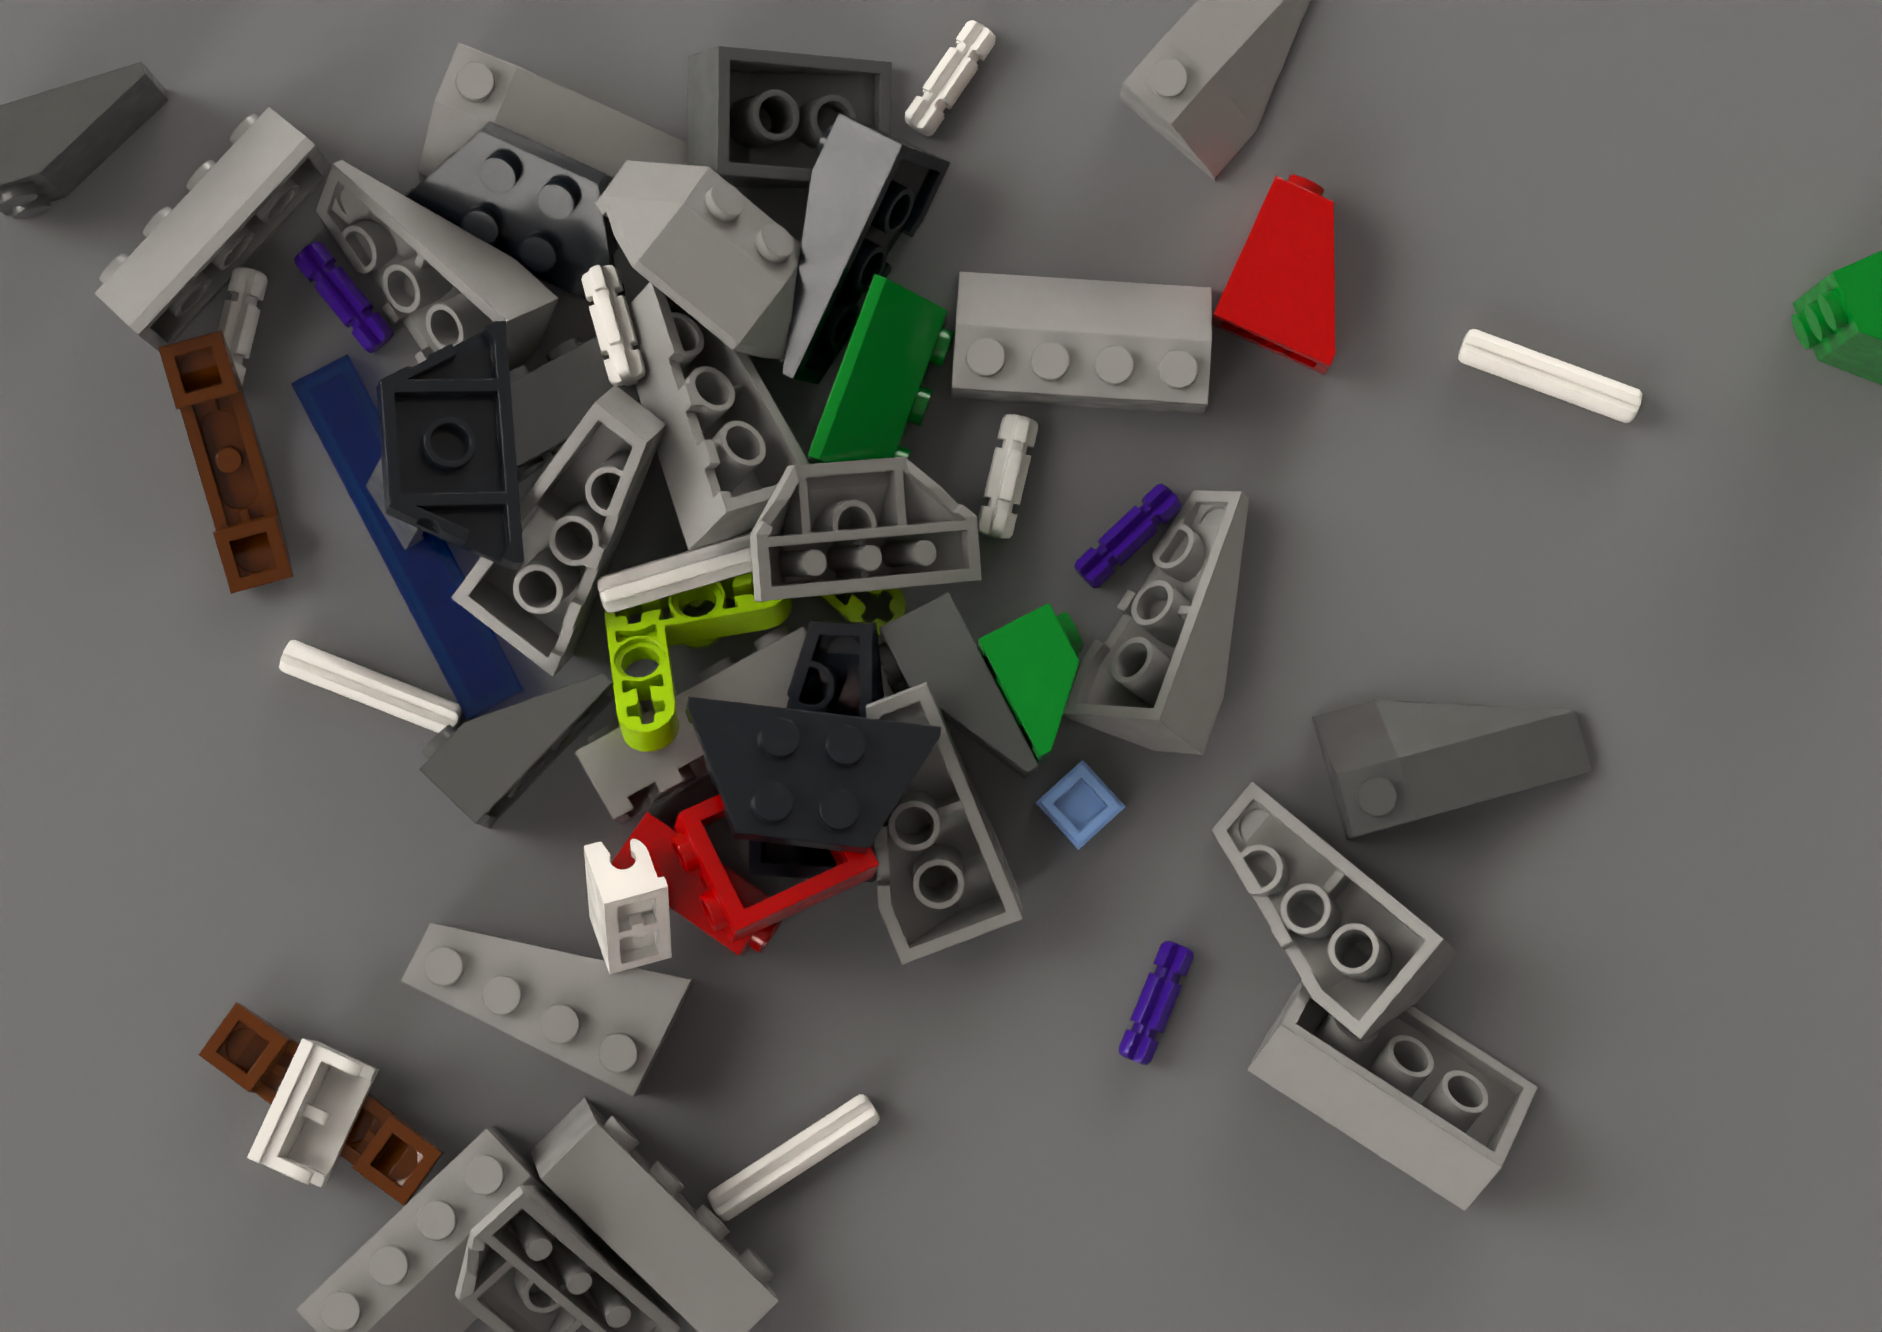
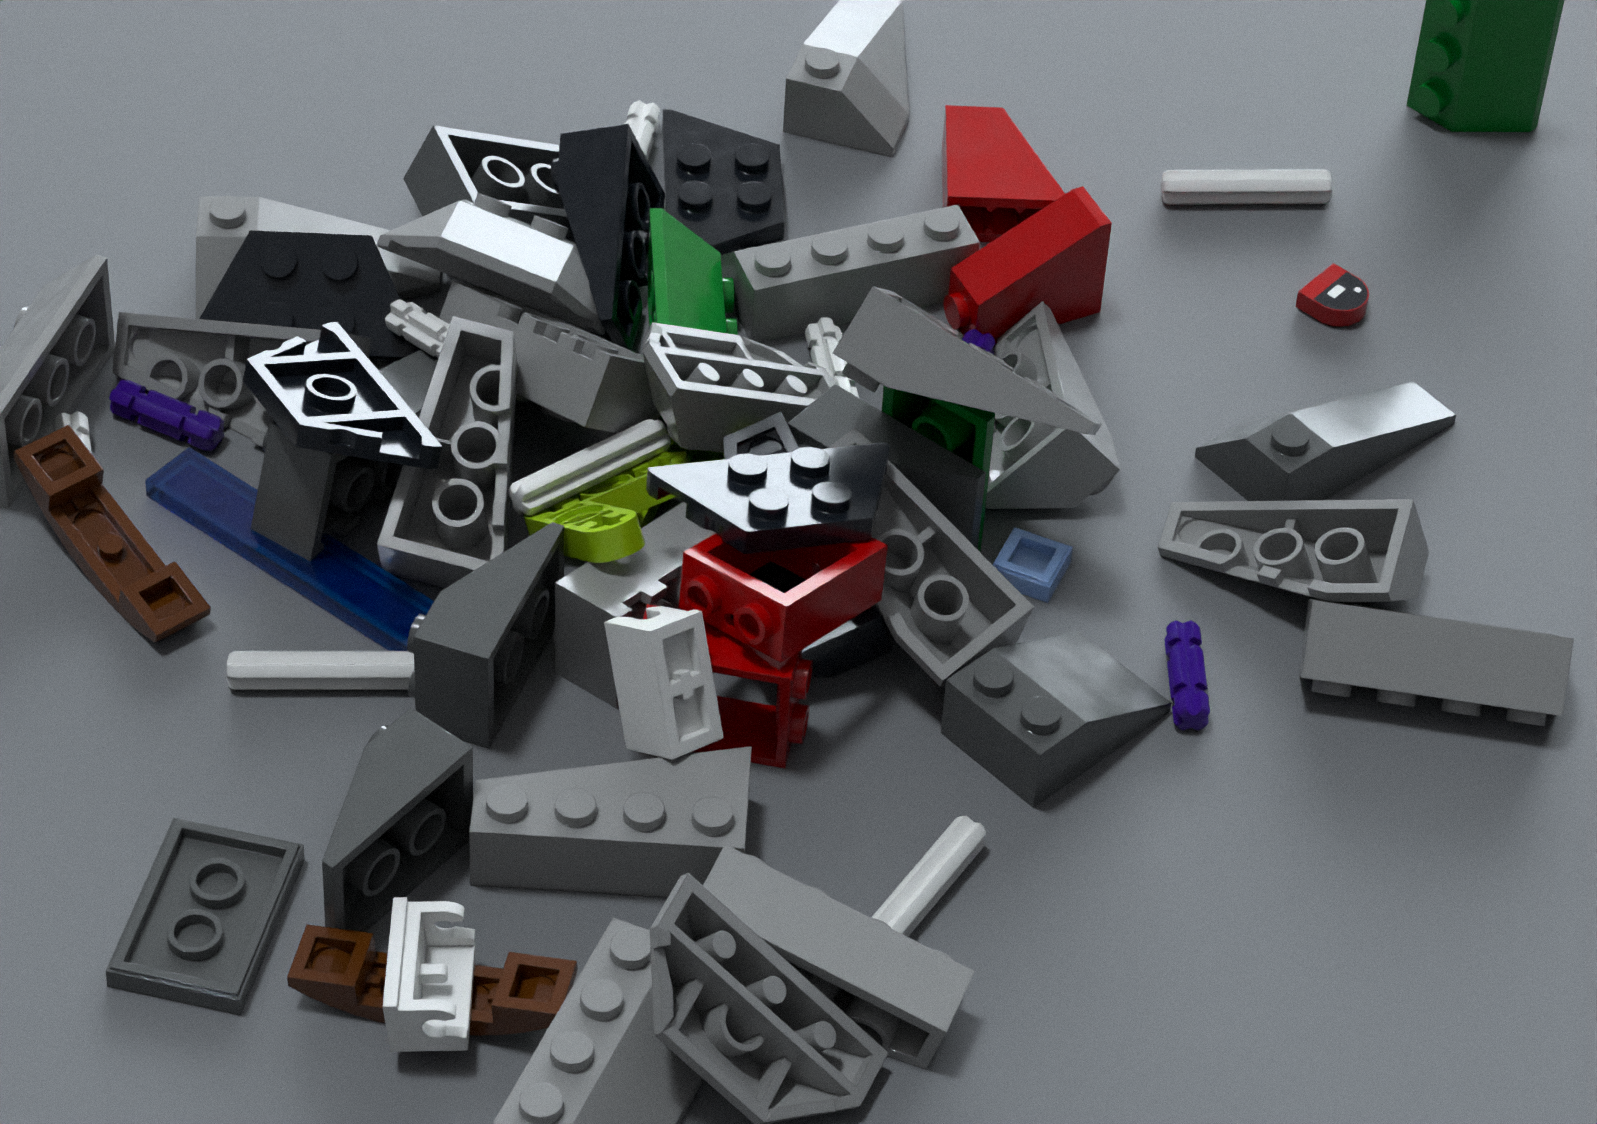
camera: 25 degrees left, 40 degrees down
(166, 933) = (205, 916): none -> dark grey tile
(345, 928) = (398, 820): none -> dark grey slope
(1007, 174) = (722, 183): none -> black wing
(1009, 687) = (921, 355): none -> light grey wedge
(1014, 999) = (1046, 711): none -> dark grey slope
(1244, 450) = (1046, 258): none -> red slope
(1559, 567) = (1334, 297): none -> tile

